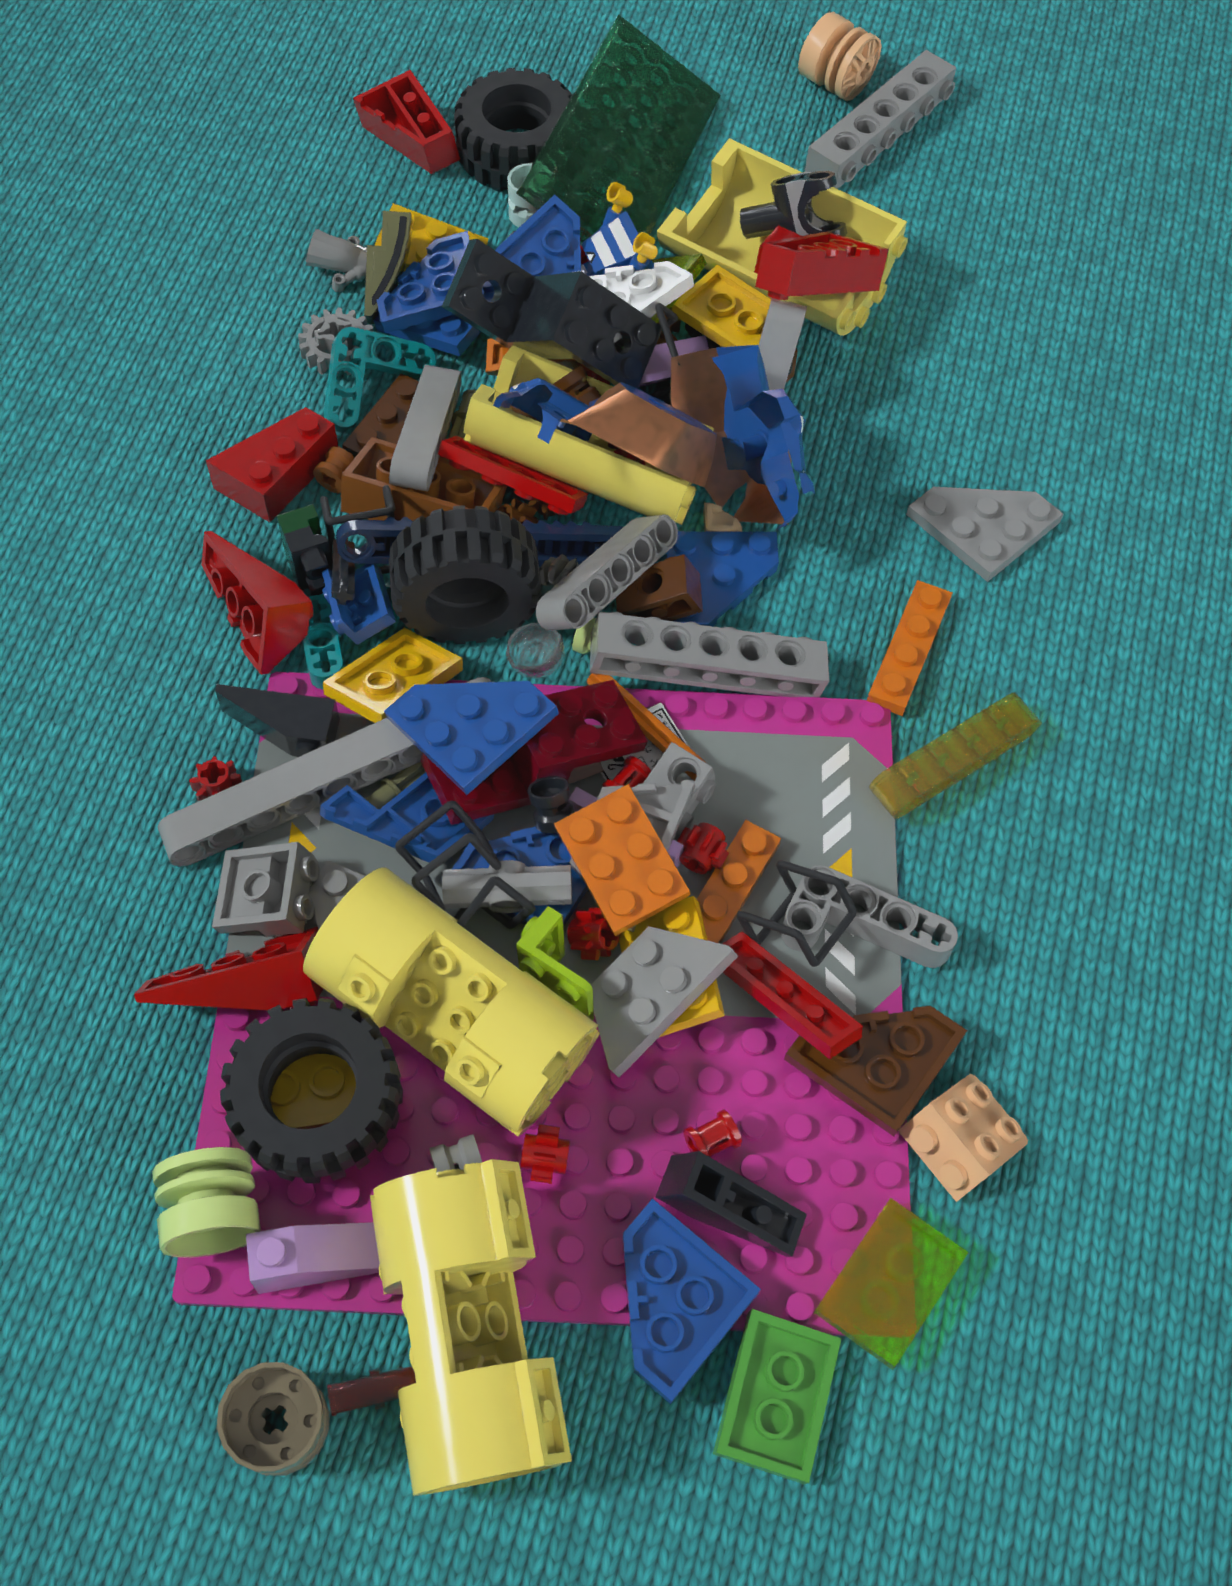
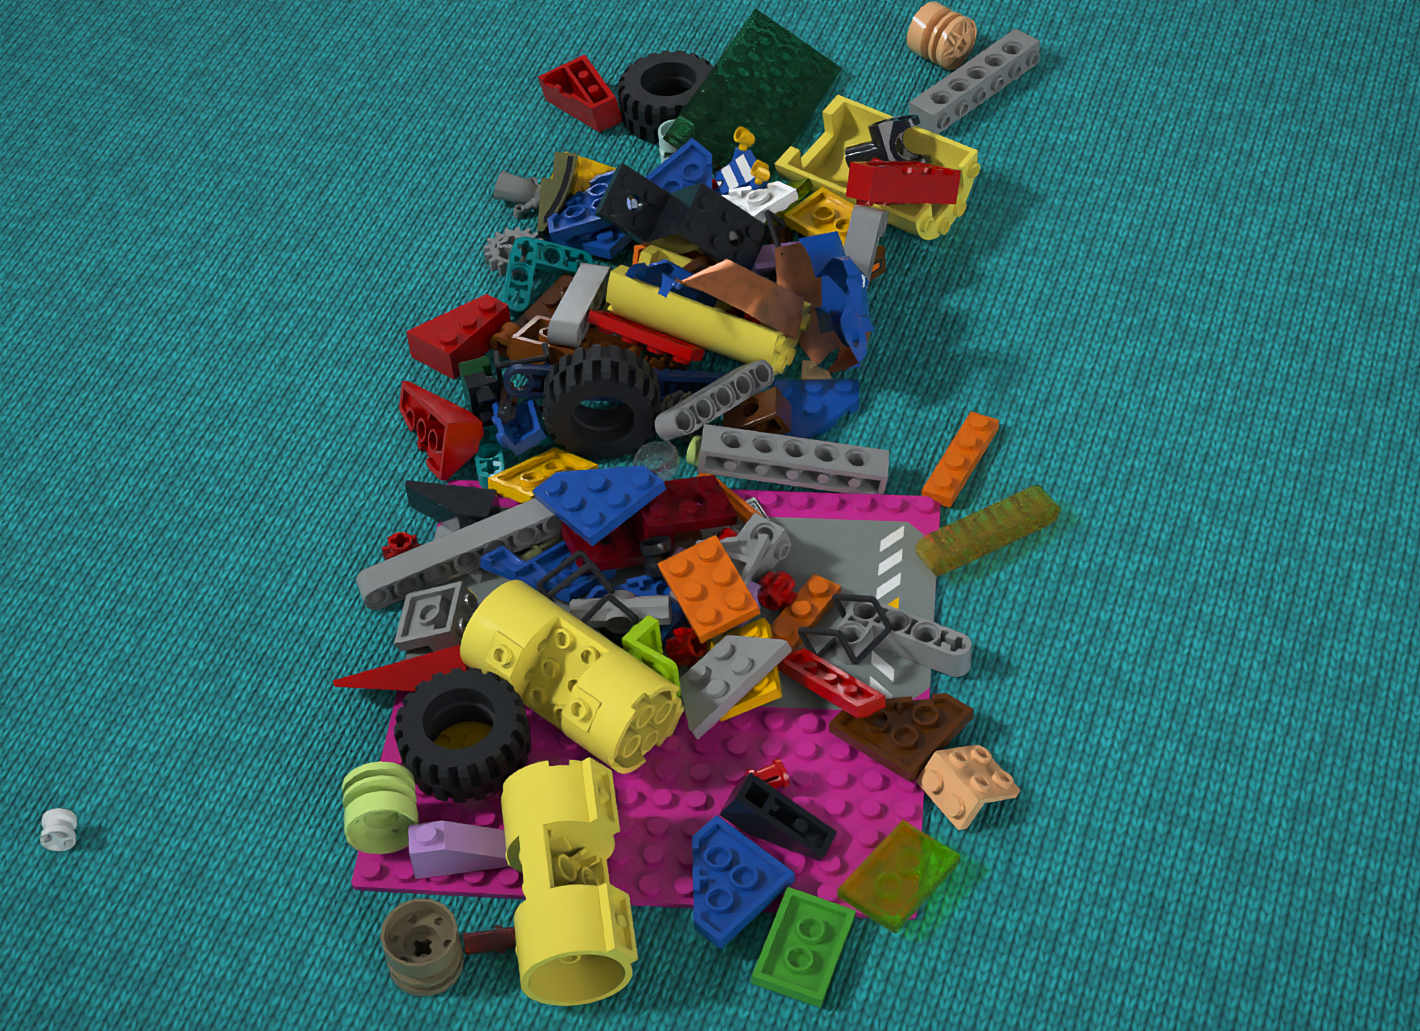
camera: 10 degrees right, 15 degrees down
(545, 1153) = (636, 786): red gear -> none
(984, 525) = (1032, 374): light grey plate -> none

